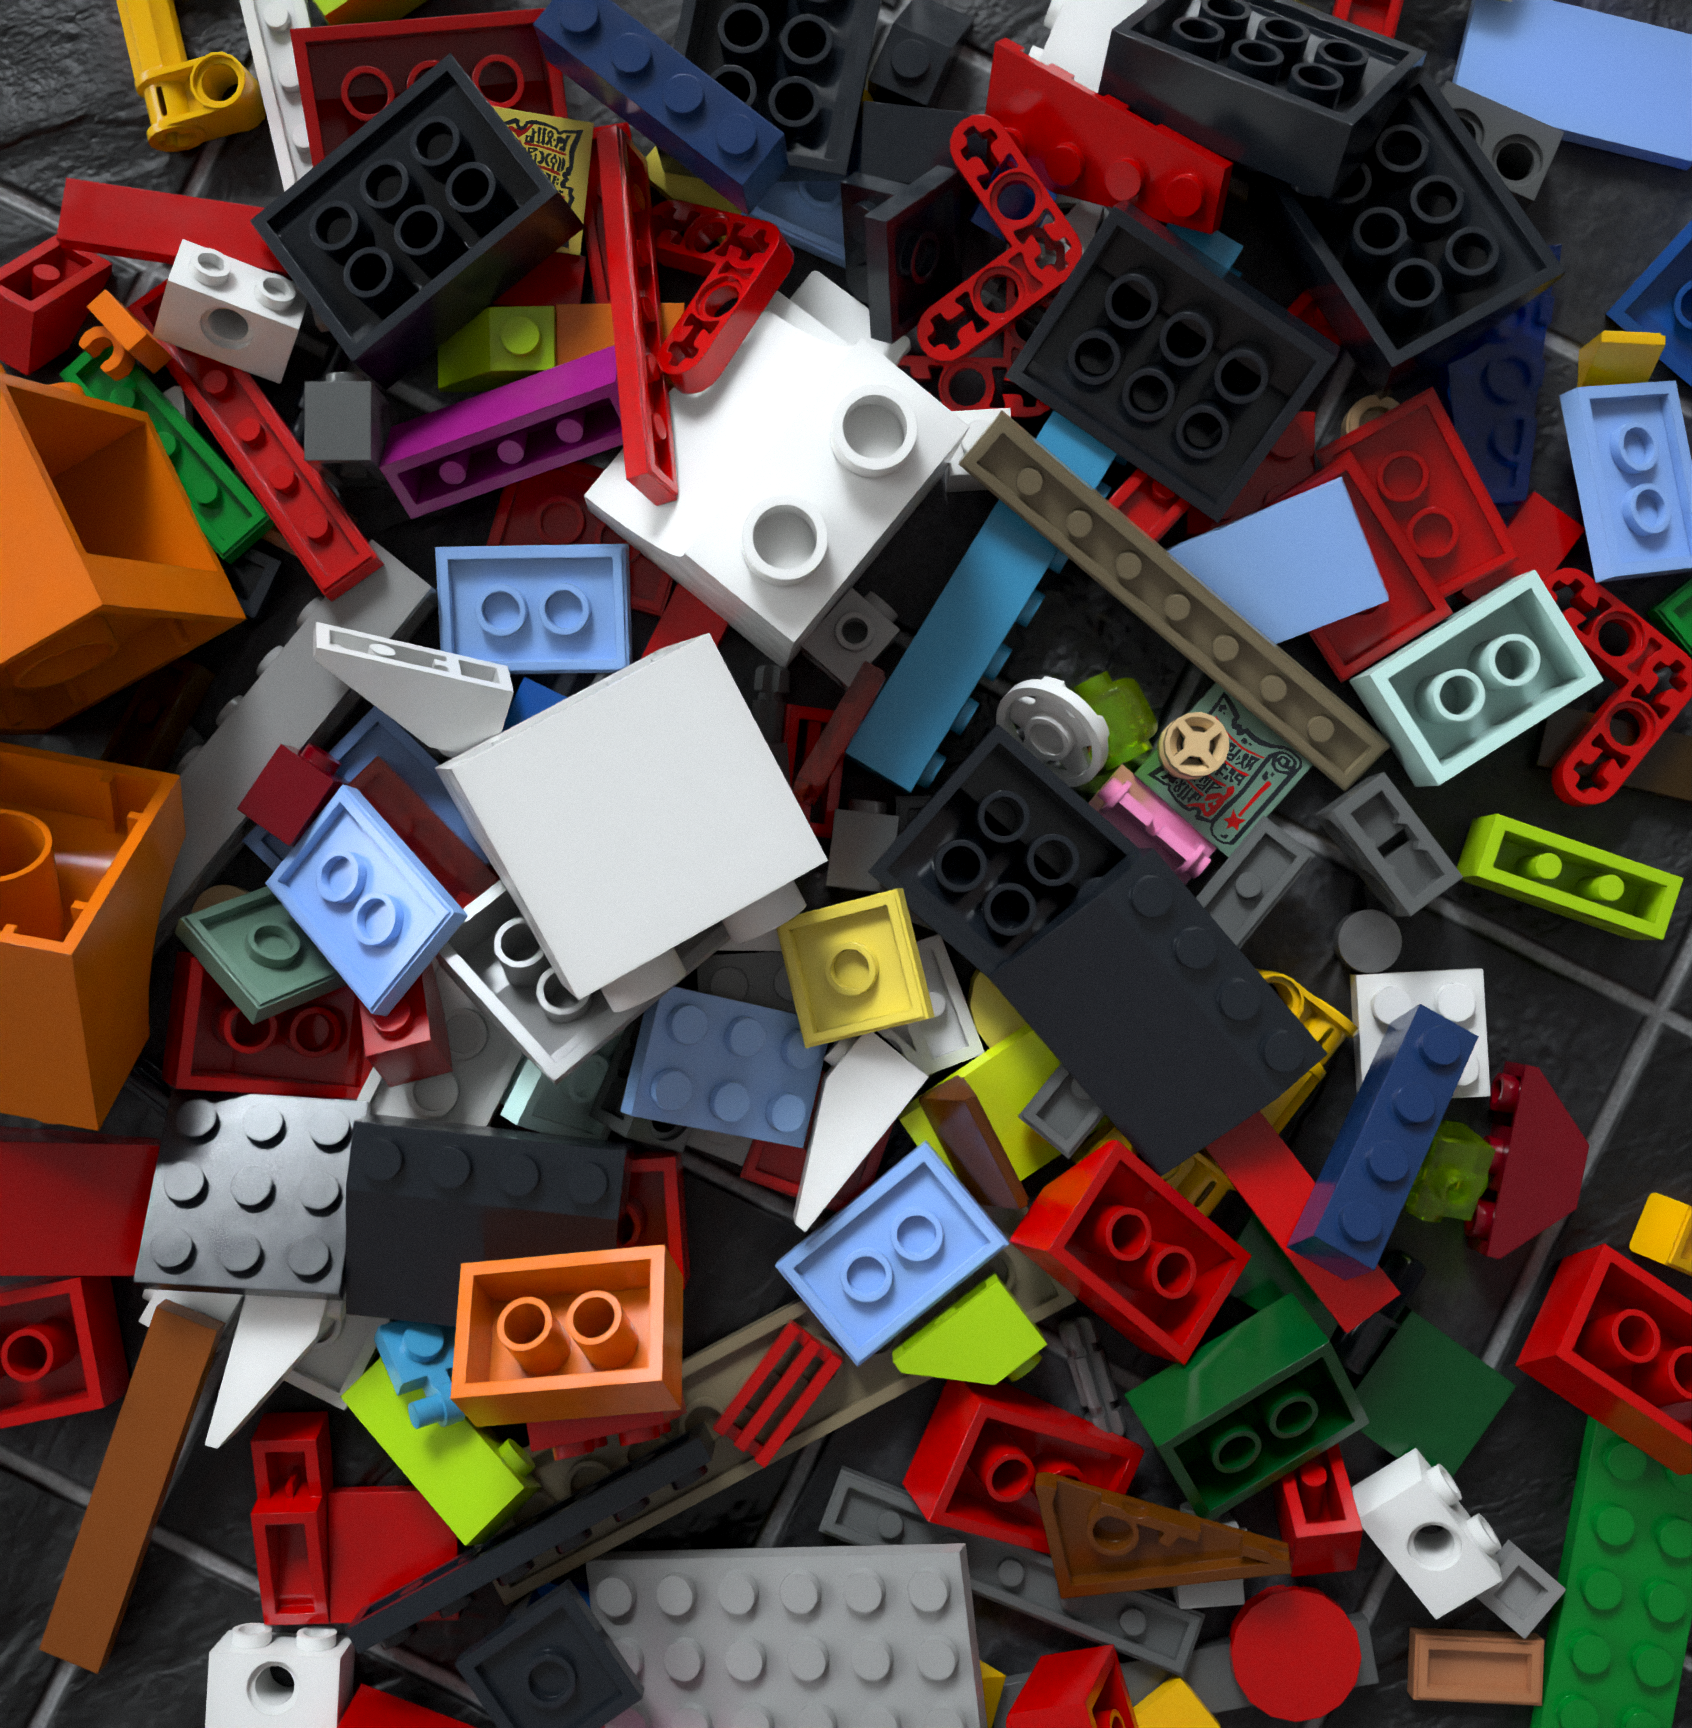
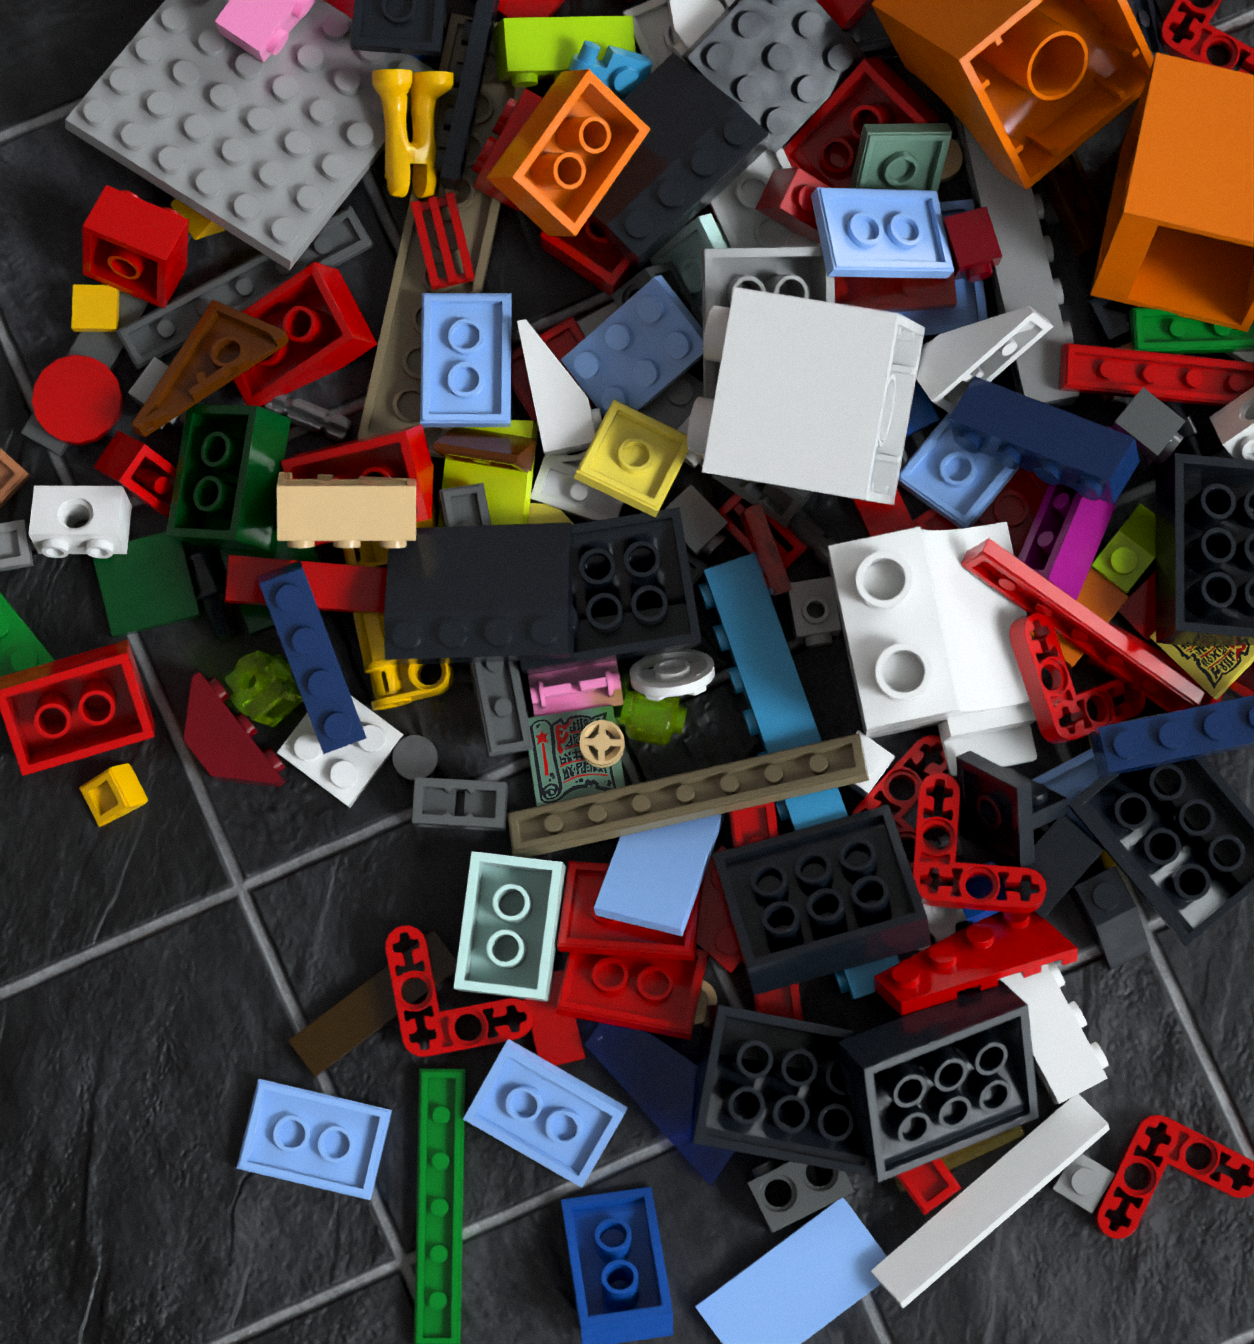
camera: 130 degrees right, 5 degrees down
(457, 522) = (1044, 440): none -> dark blue brick
(624, 1561) = (424, 91): none -> yellow piece
(974, 1338) = (385, 366): lime slope -> none
(1196, 1245) = (345, 511): none -> tan wedge
(1568, 878) = (360, 887): lime brick -> none
(1619, 358) = (617, 1164): yellow slope -> none

